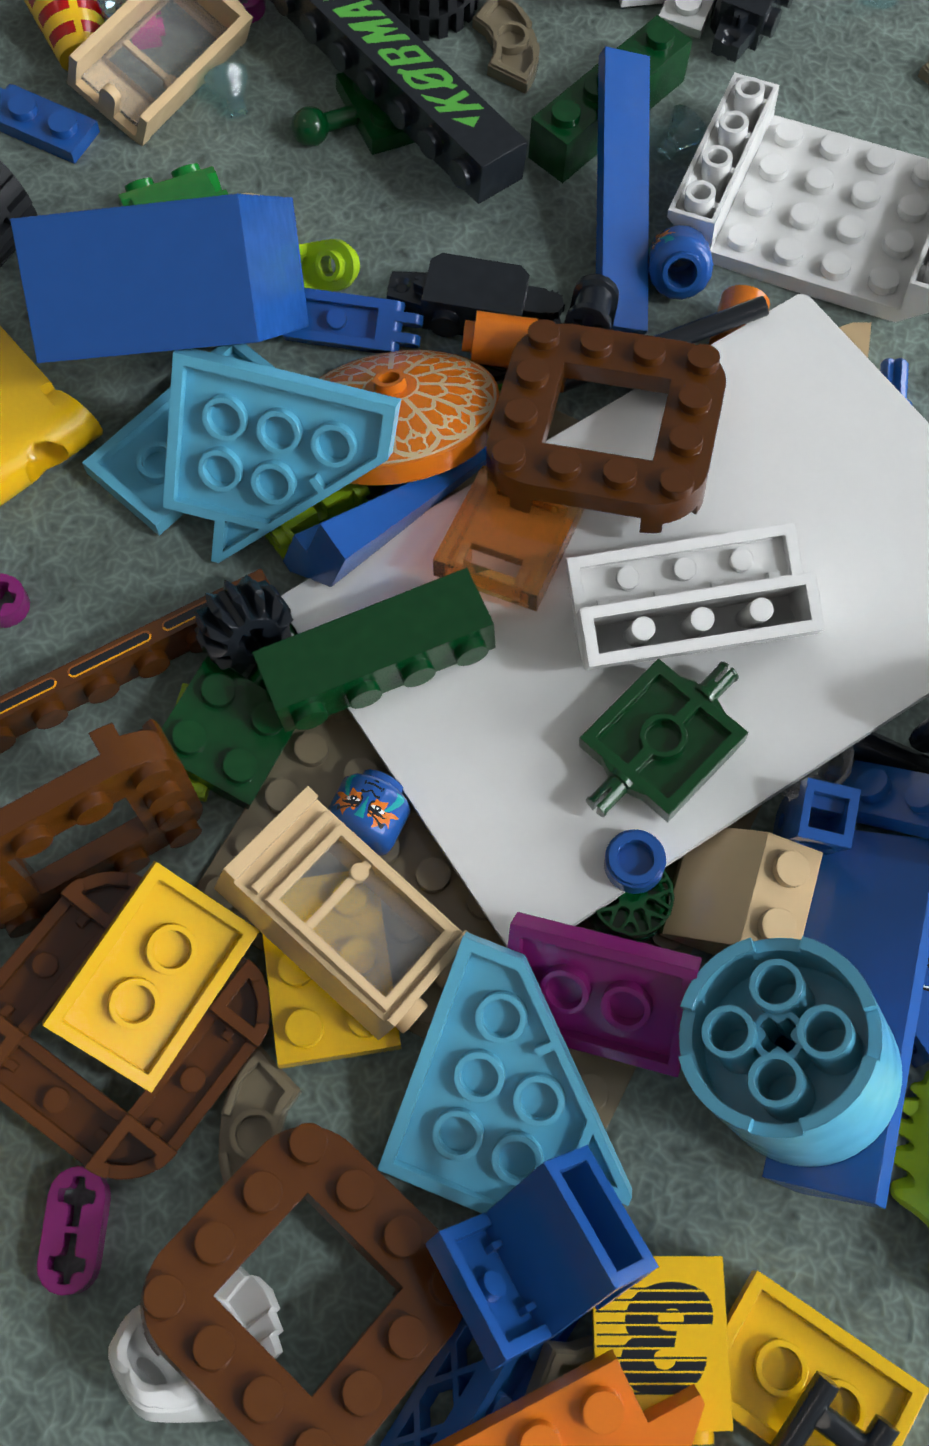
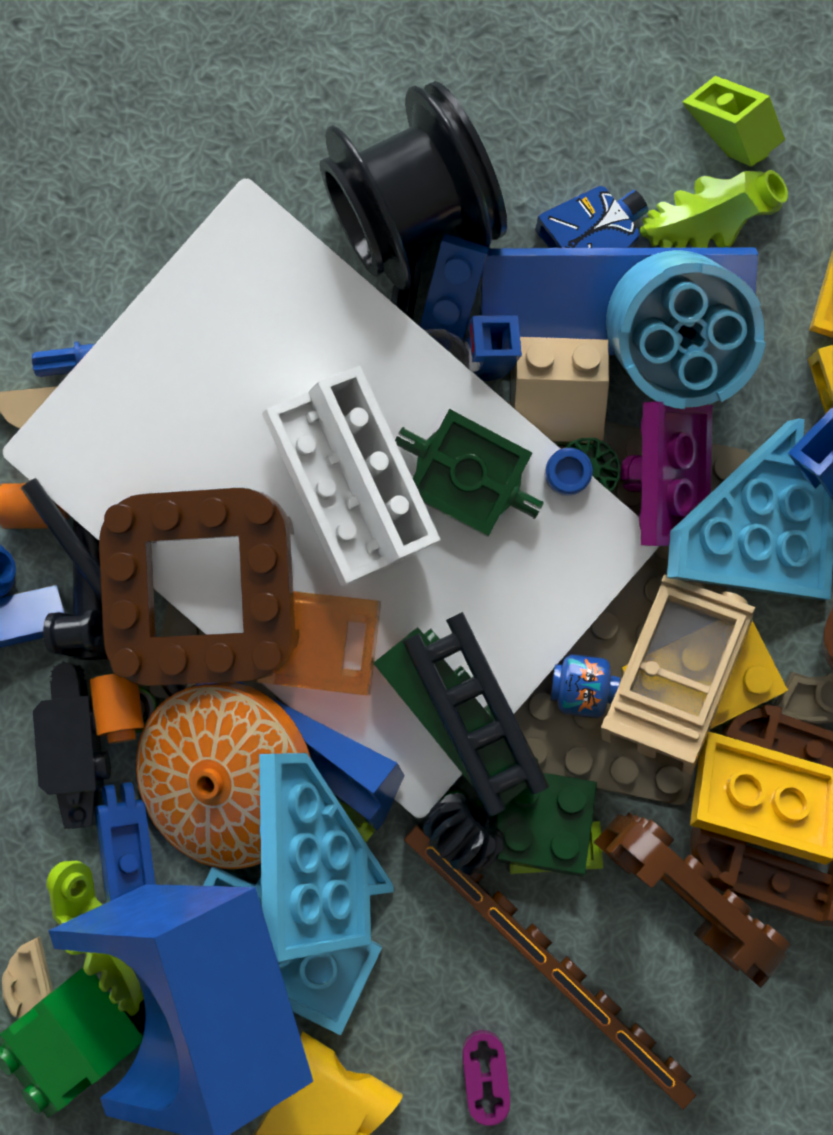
camera: 105 degrees left, 15 degrees up
(340, 638) = (468, 743): none -> black bar

